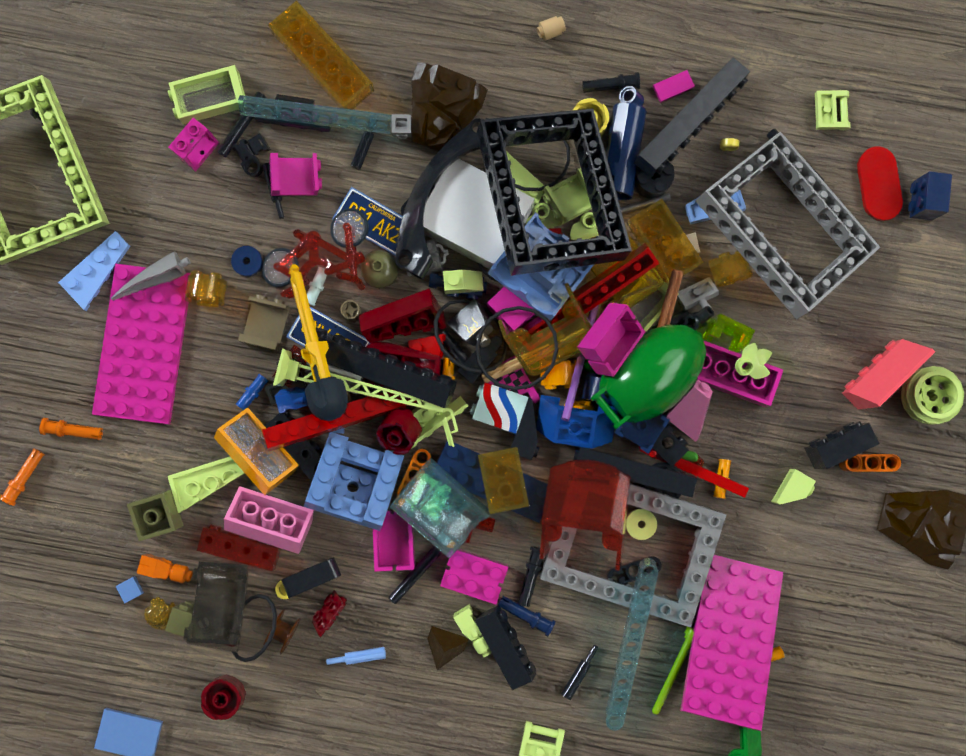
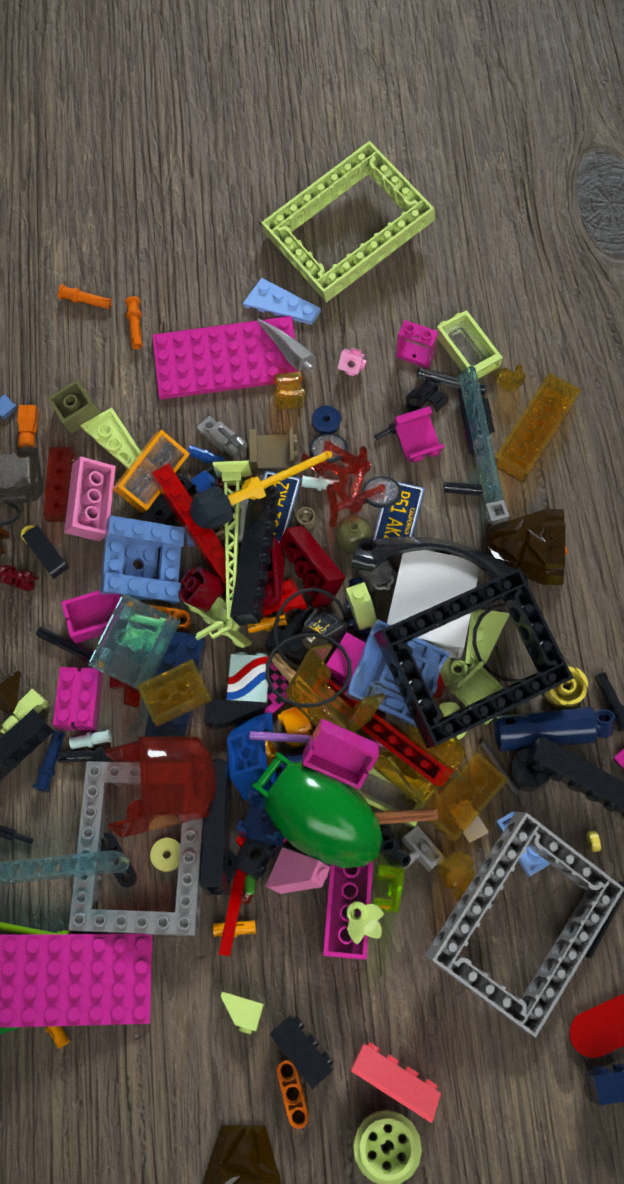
camera: 85 degrees right, 15 degrees down
(191, 216) = (346, 359): none -> bright pink brick
(235, 370) = (222, 436): none -> light grey plate
(260, 64) = (511, 380): none -> clear yellow hair
(515, 572) = (90, 739): none -> light aqua pin

